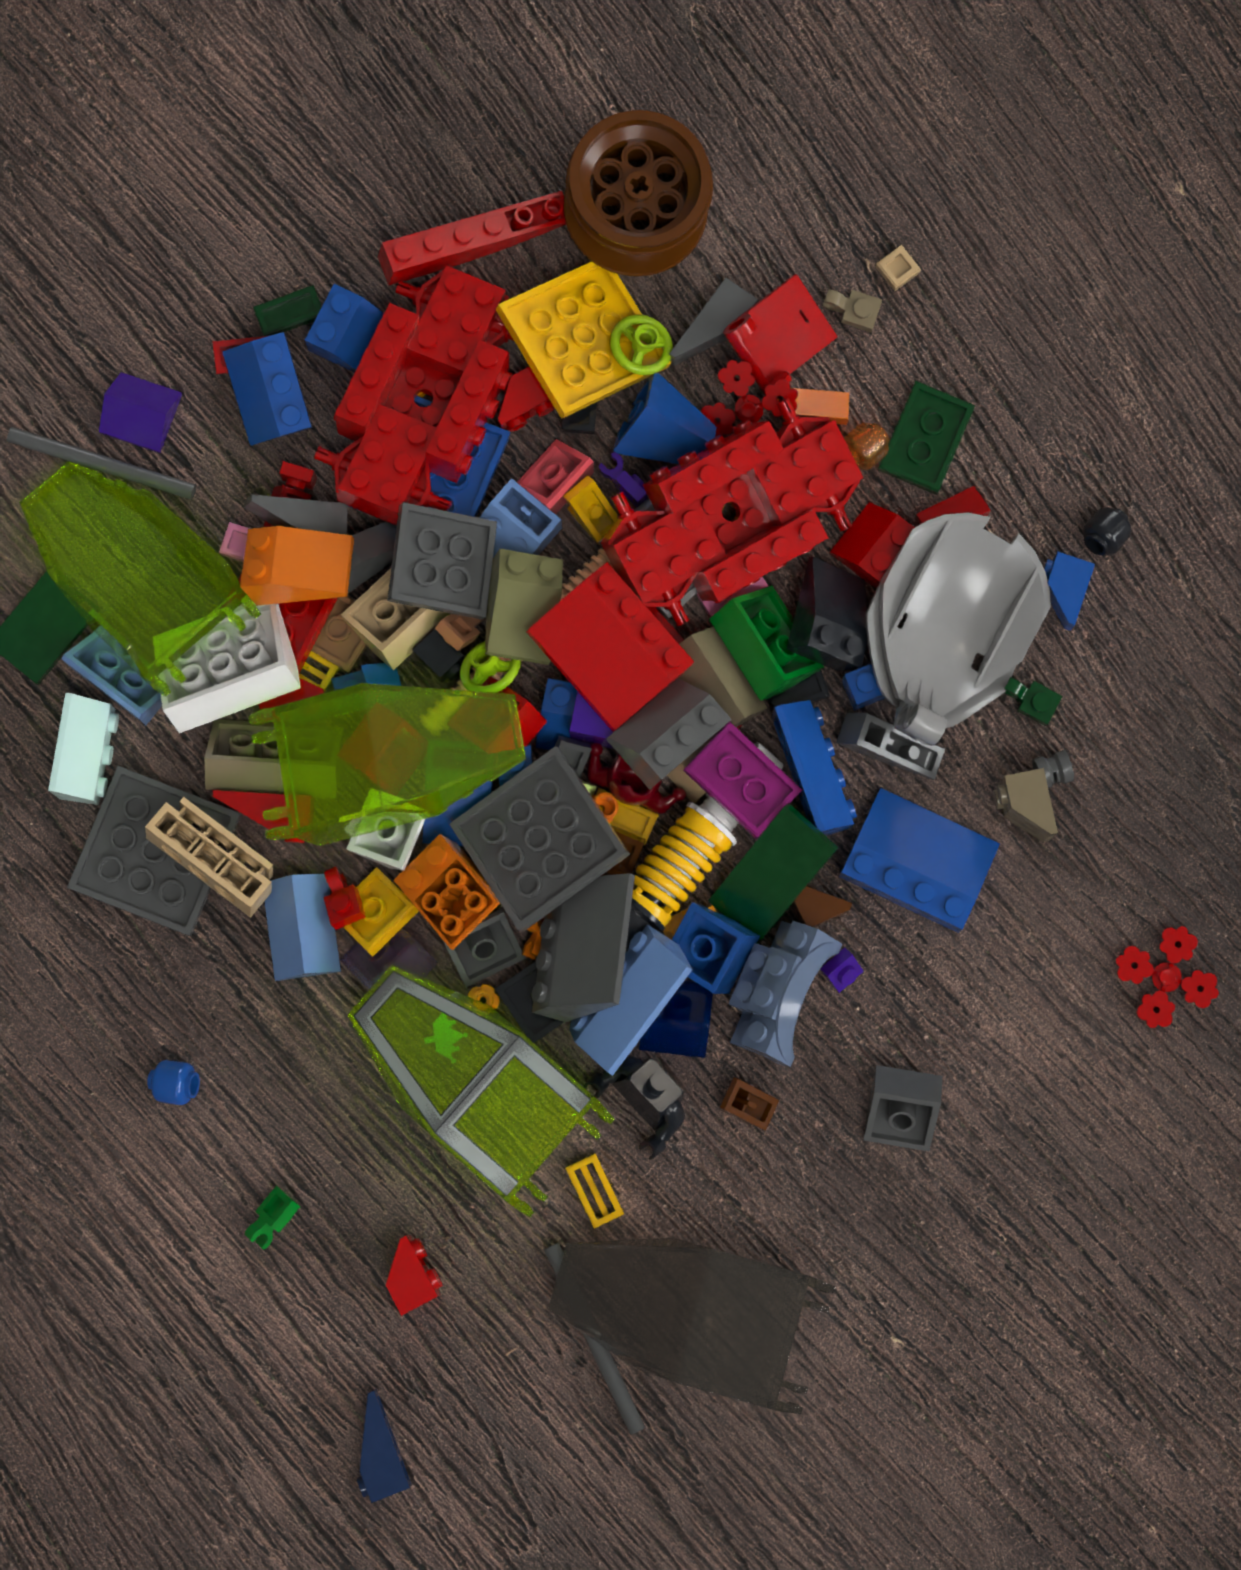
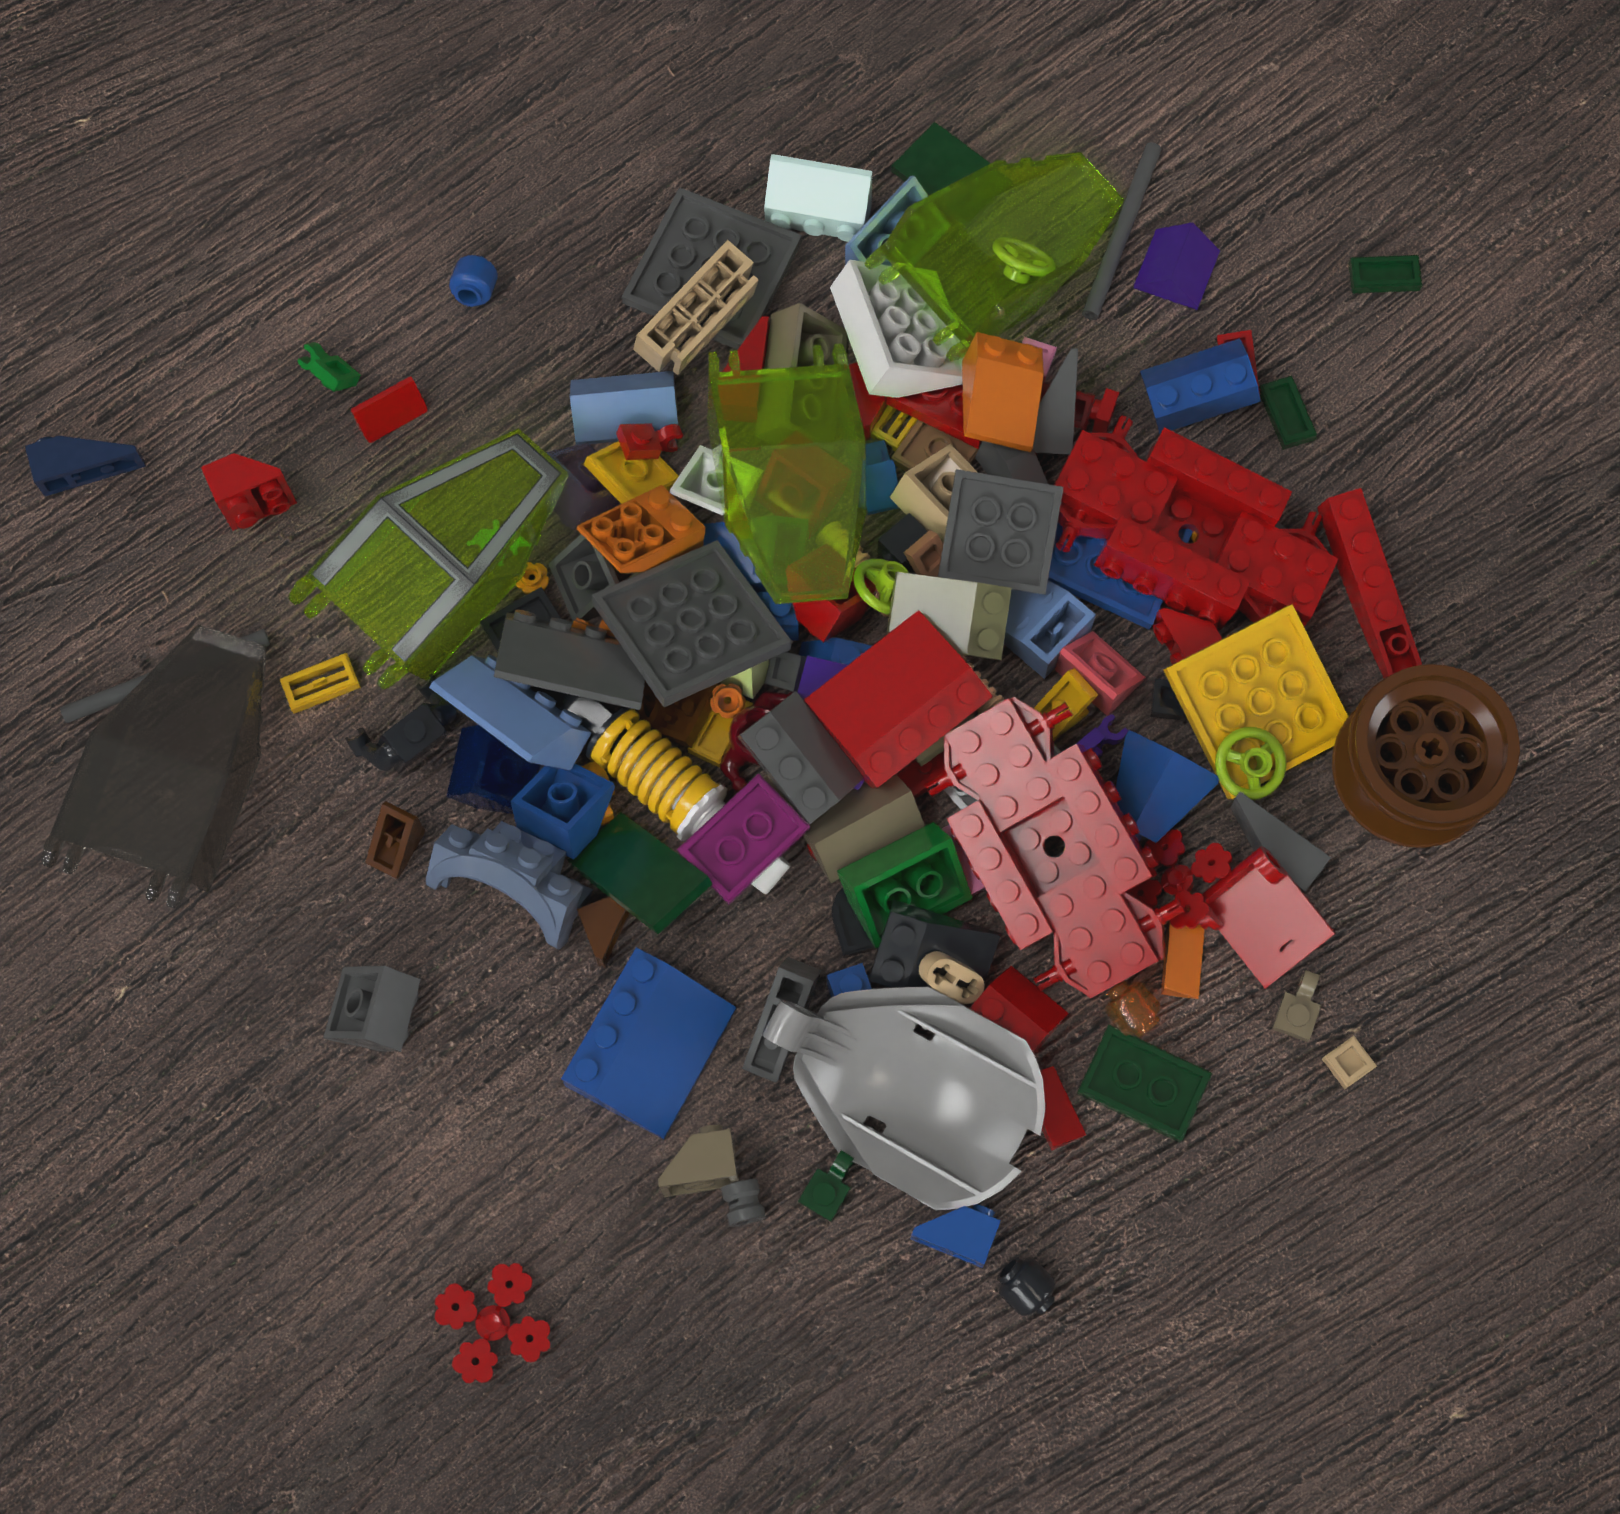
camera: 95 degrees right, 10 degrees down
(142, 221) = (1385, 274): none -> dark green tile
(147, 553) = (1022, 259): none -> lime piece
(315, 1152) = (389, 410): none -> red slope
(343, 328) = (1272, 452): blue slope -> none
(812, 767) = (758, 926): blue slope -> none
(842, 970) = (530, 949): dark purple plate -> none
(854, 596) = (948, 984): none -> tan beam

